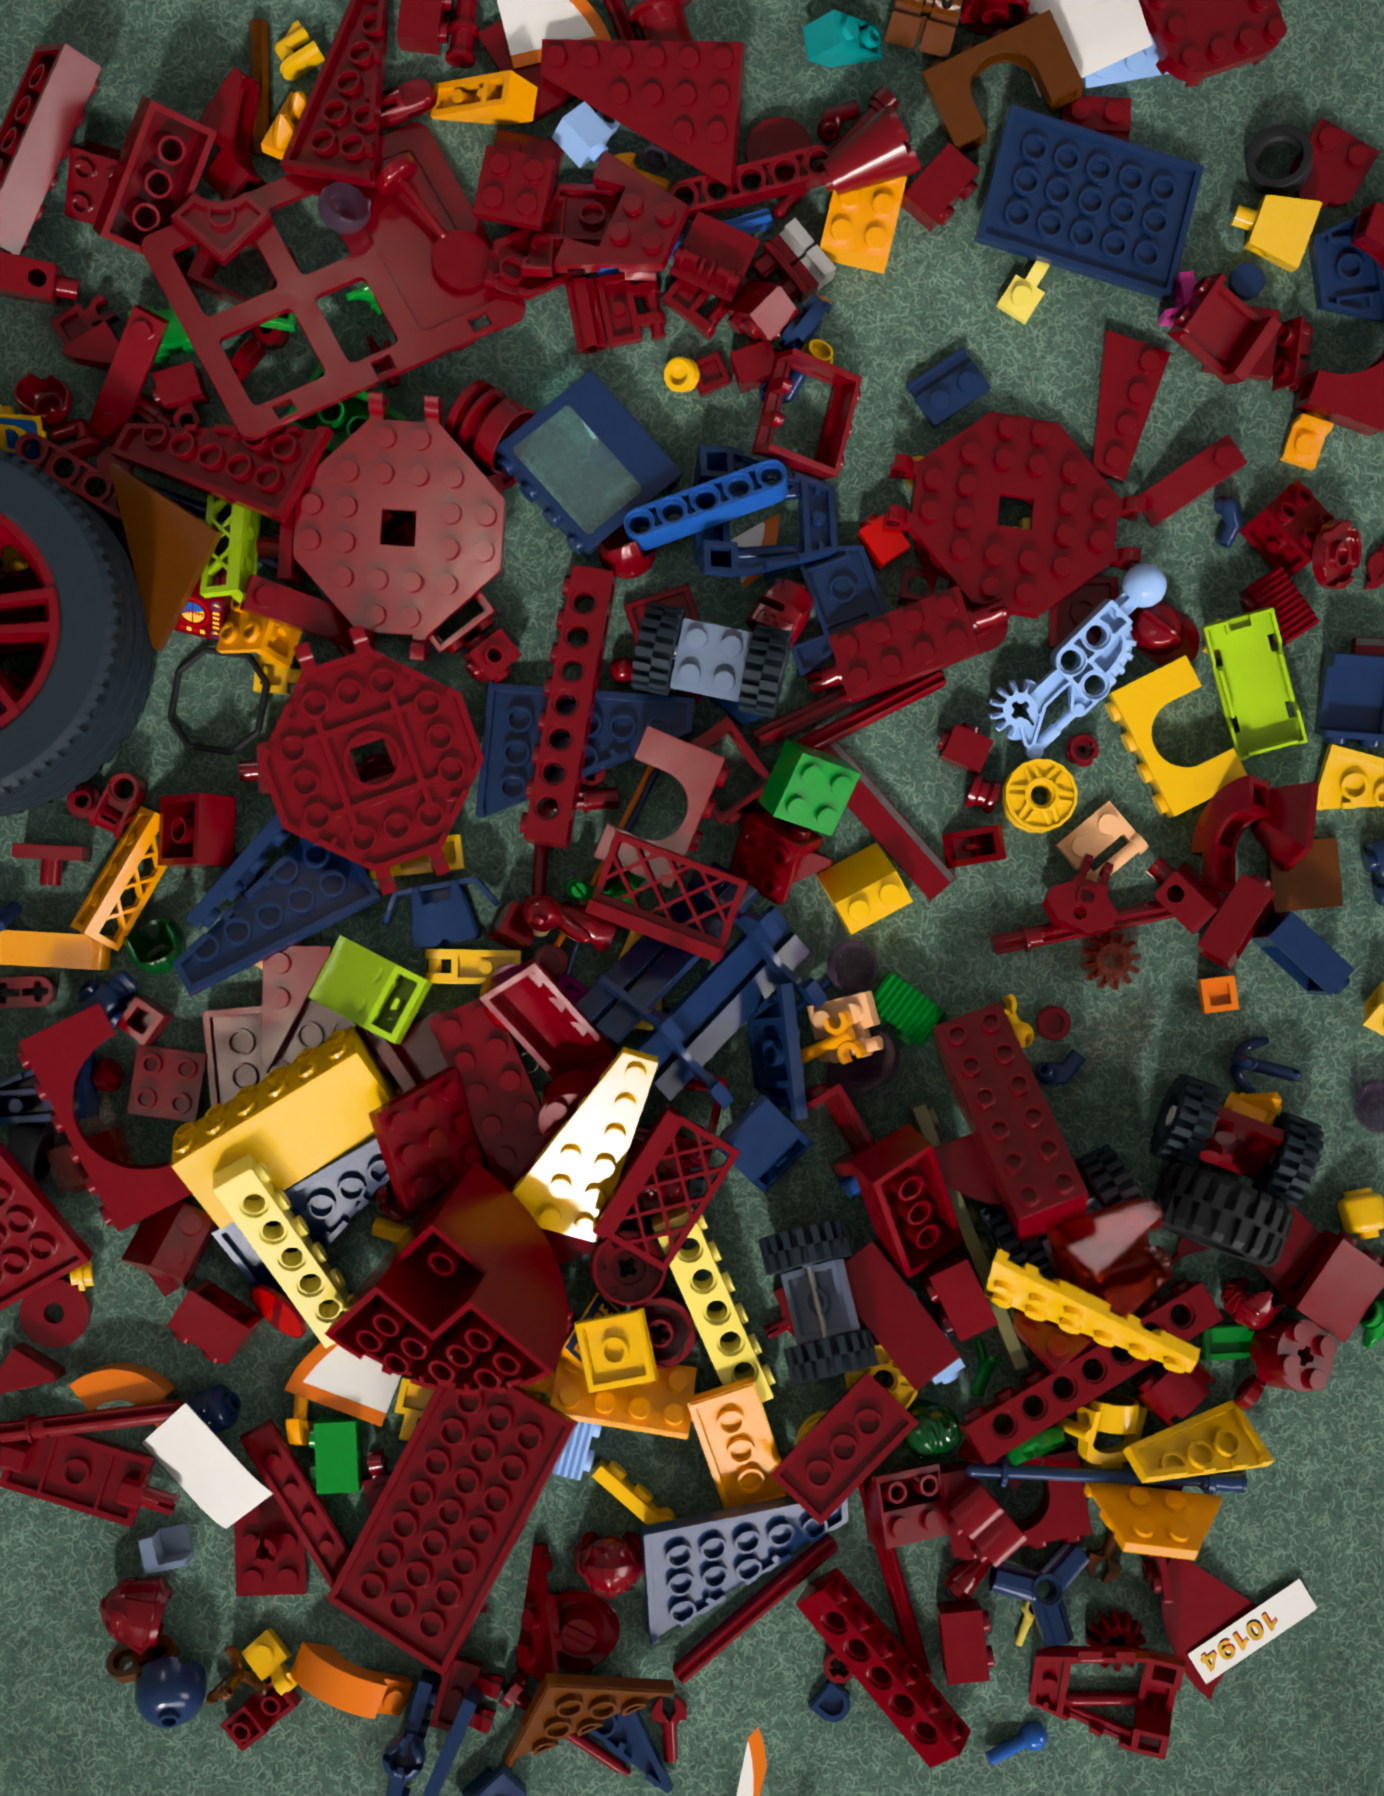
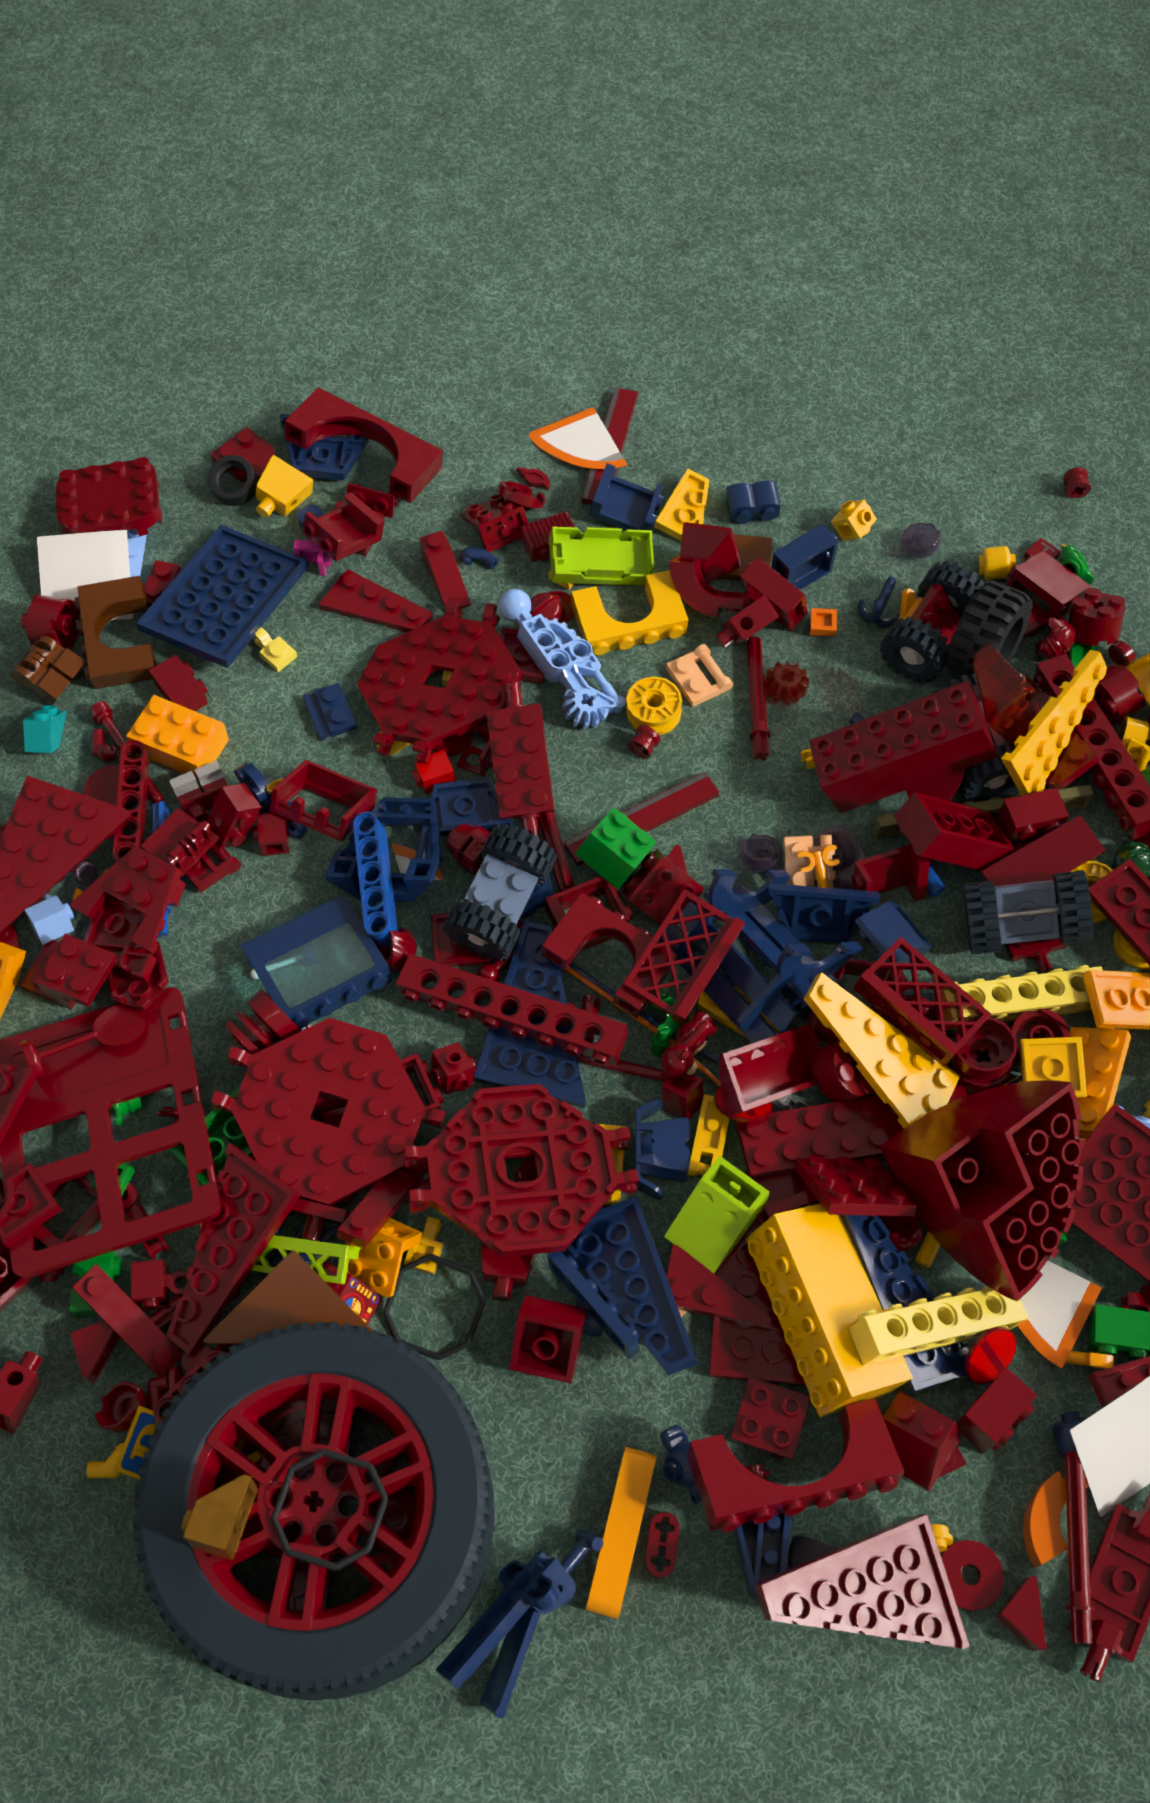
camera: 75 degrees left, 25 degrees down
(51, 858) = (543, 1488): dark red tile -> none
(70, 1174) = (831, 1527): clear red brick -> none
(73, 798) = (505, 1455): dark red plate -> none
(78, 321) = (63, 1365): dark red plate -> none
(116, 878) = (572, 1422): light orange fence -> none
(117, 806) = (509, 1415): dark red piece -> none
(145, 1020) = (709, 1421): dark red brick -> none
(156, 945) = (643, 1400): dark green hair -> none
(343, 208) = (47, 1103): clear purple hair -> none
(412, 1403) = (1081, 1258): yellow plate -> none
(552, 960) = (711, 1072): dark red plate -> none
(586, 315) = (193, 947): dark red axle -> none
(620, 312) = (198, 922): dark red plate -> none
(681, 374) = (263, 887): yellow tile -> none
(712, 373) = (267, 870): dark red tile -> none
(864, 888) = (703, 832): yellow slope -> none
(871, 155) = (144, 706): dark red cone -> none
(874, 711) = (565, 805): dark red axle -> none
(906, 1010) = (803, 817): green brick -> none
(964, 747) = (607, 746): dark red brick -> none
(974, 846) = (683, 751): dark red slope -> none
(984, 1369) = (1094, 824): green bar -> none
(1053, 1023) = (825, 726): dark red tile -> none
(1083, 898) = (739, 686): dark red hinge -> none
(1088, 743) = (624, 668): dark red plate -> none
(1305, 440) = (433, 502): light orange bracket -> none

